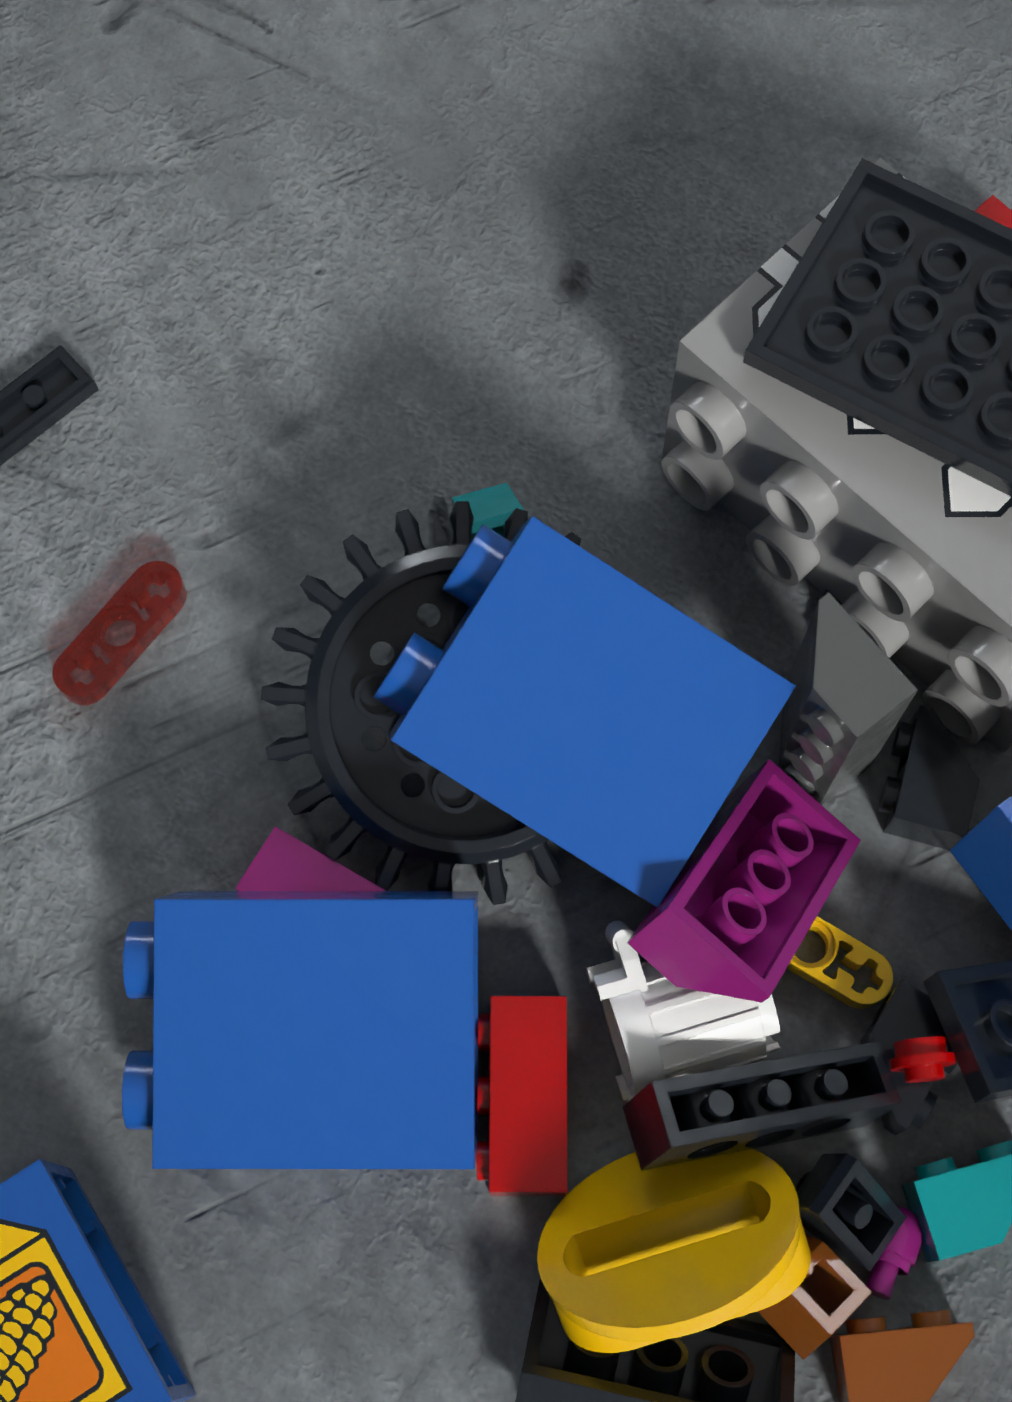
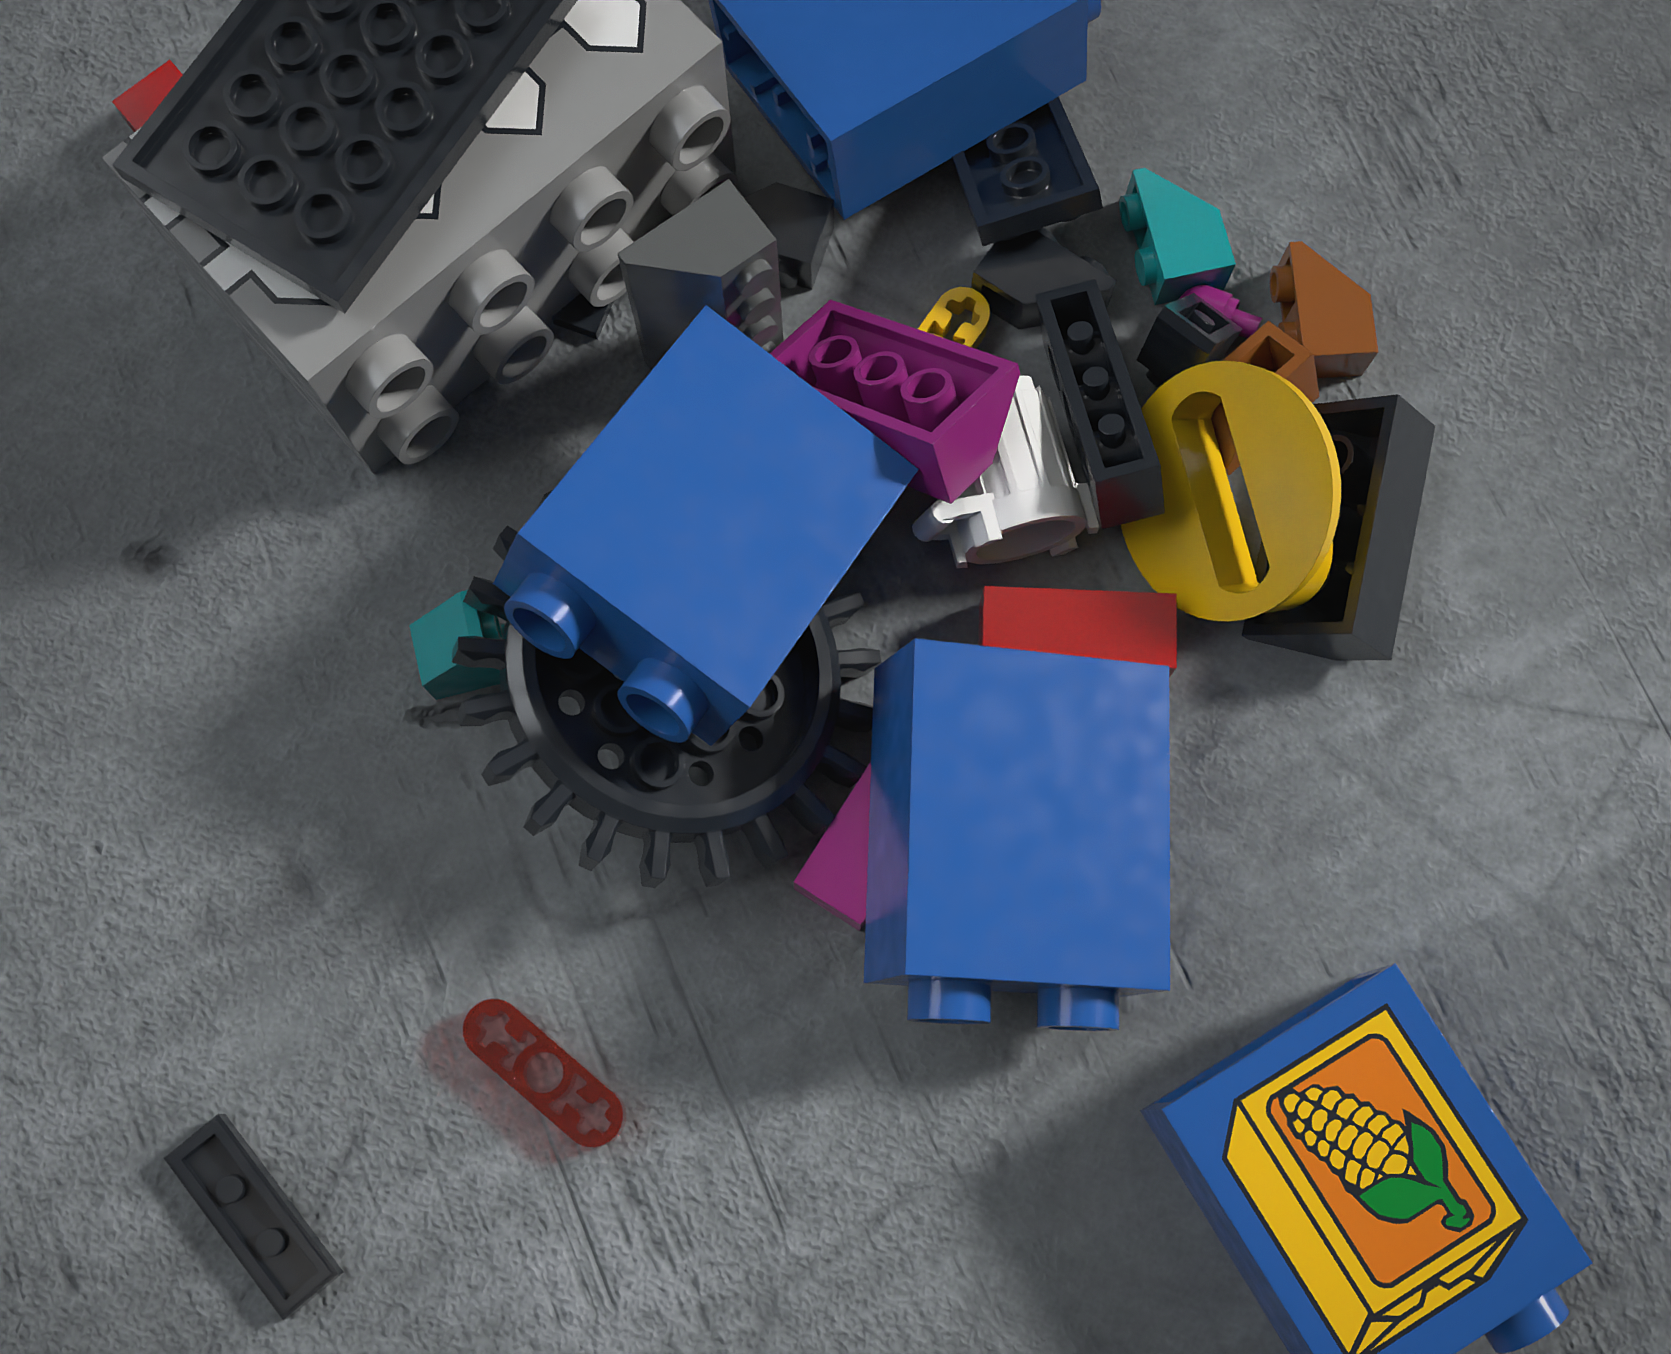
camera: 90 degrees left, 5 degrees up
(922, 1058) = (1057, 253): red plate -> none

